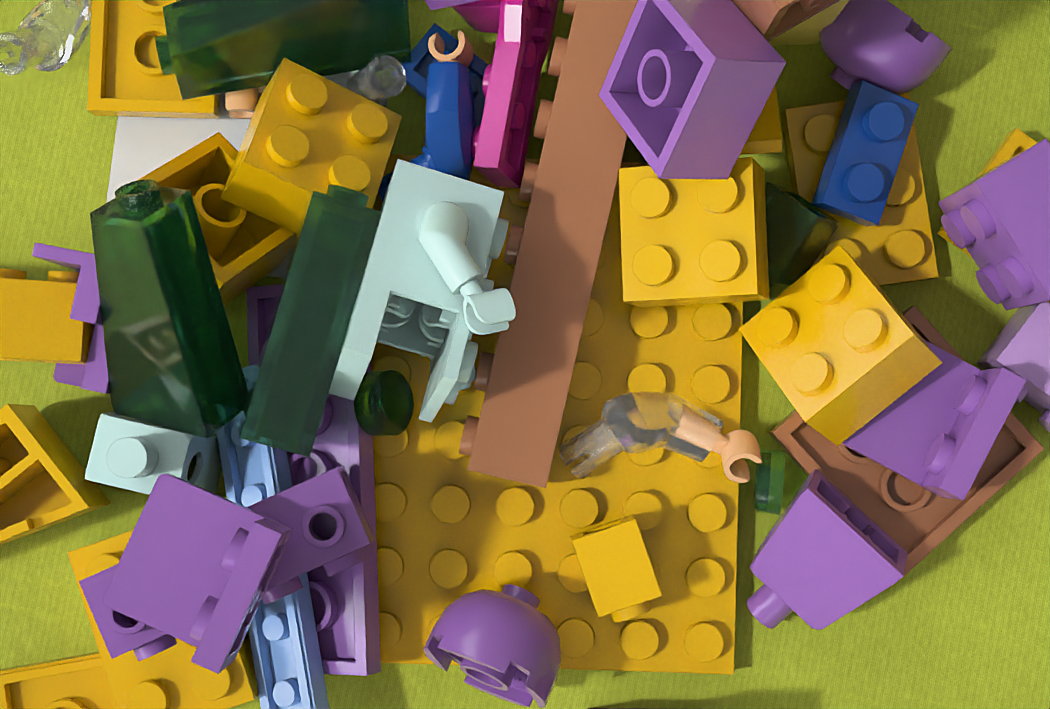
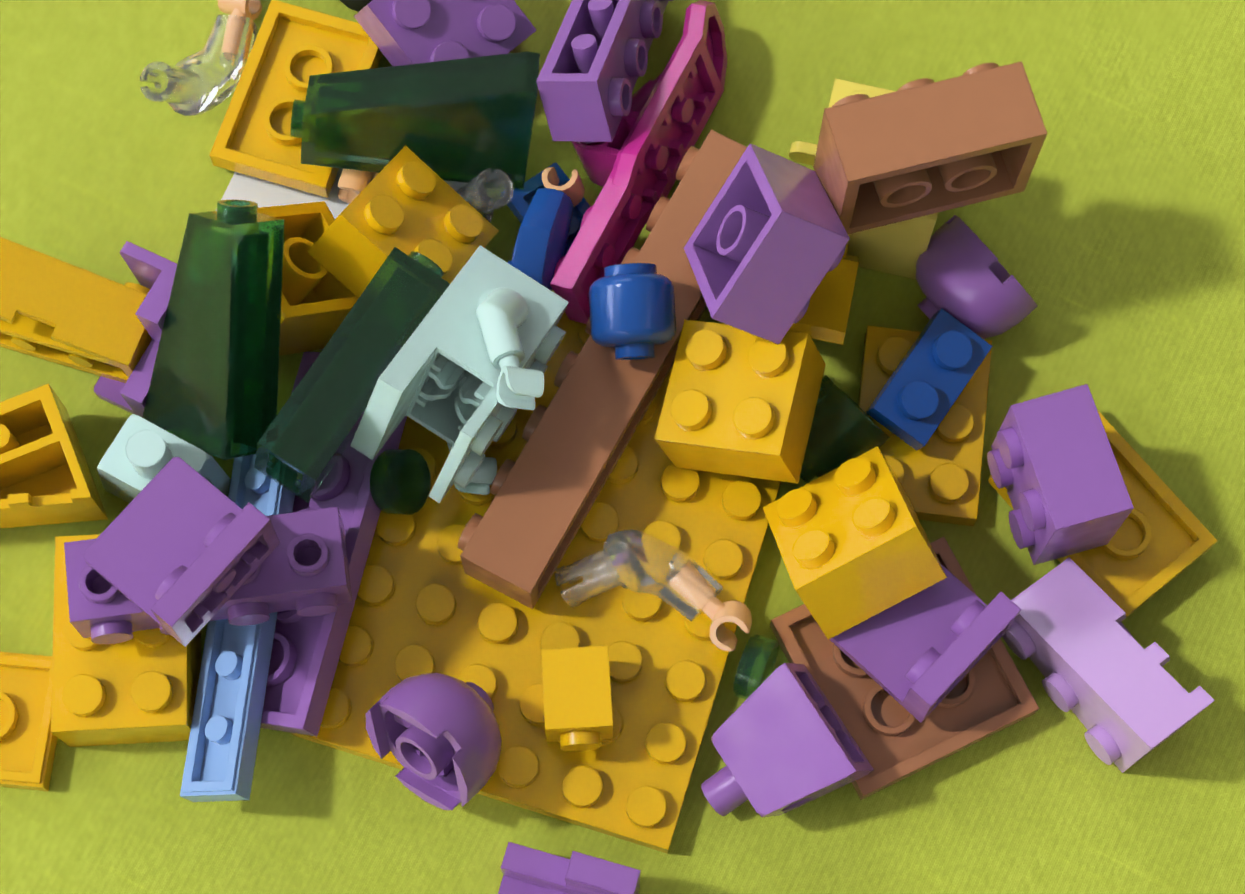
camera: 15 degrees right, 15 degrees down
(568, 179) = (632, 310): none -> blue head

